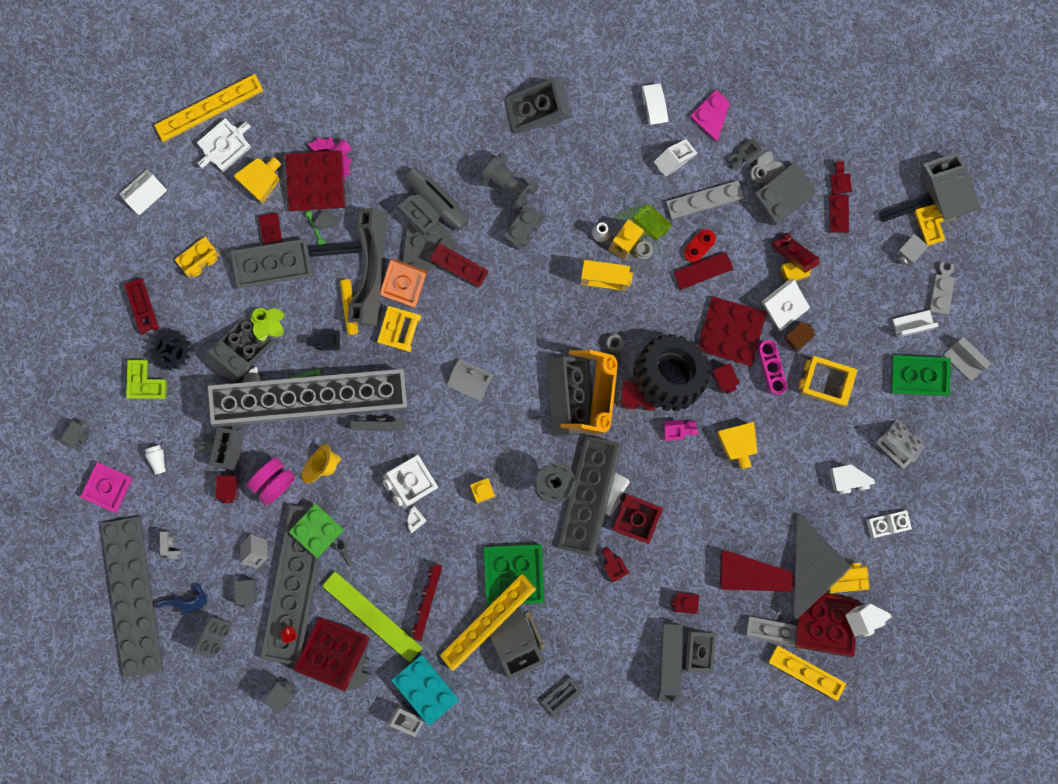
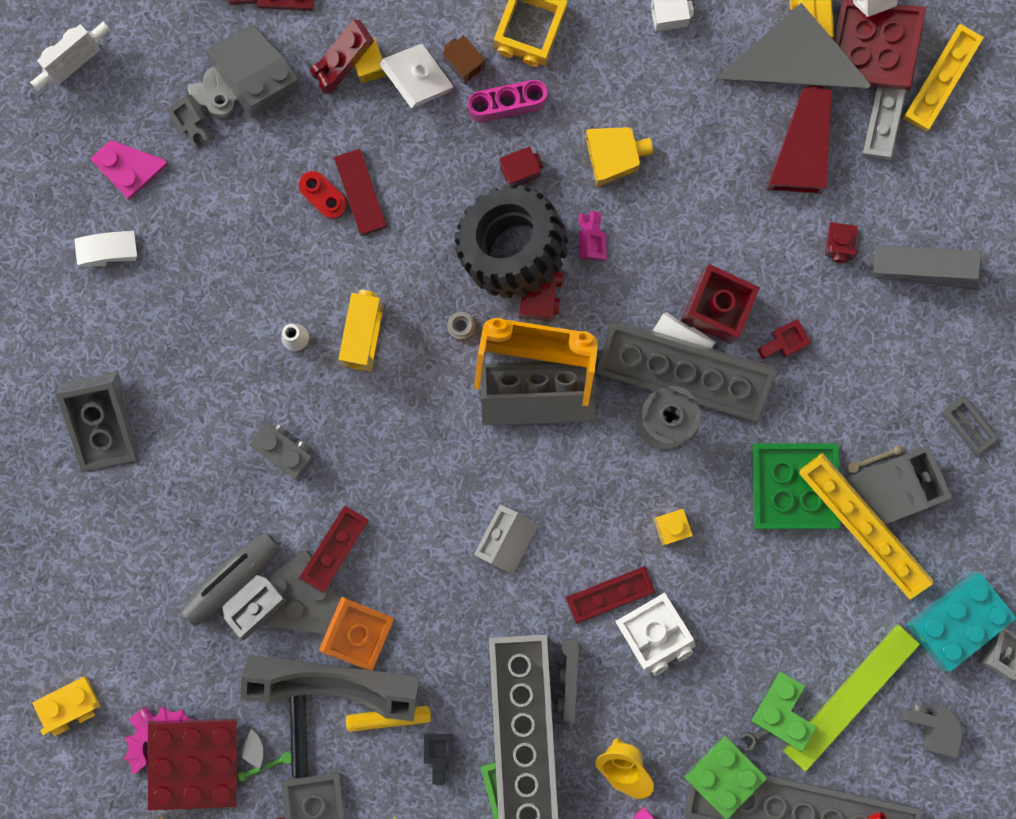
camera: 85 degrees left, 0 degrees up
(331, 654) = (909, 760): dark red plate -> none
(351, 98) = (66, 705): none -> yellow bracket
(360, 565) = (776, 714): none -> bright green plate
(392, 328) = (421, 652): yellow plate -> none
(415, 519) = (710, 628): white tile -> none
(424, 610) = (843, 619): dark red plate -> none
(435, 451) = (610, 594): none -> dark red tile
(503, 177) = (204, 477): dark grey piece -> none
(626, 239) = (308, 299): yellow torso -> none
(643, 250) = (324, 276): light grey plate -> none
(652, 222) = (284, 261): clear neon green piece -> none
(675, 157) = (189, 223): white slope -> none
(699, 651) = (911, 226): dark grey slope -> none
(704, 200) = (255, 184): light grey plate -> none
(731, 331) = (450, 156): dark red plate -> none
(785, 70) = (69, 54): none -> white plate

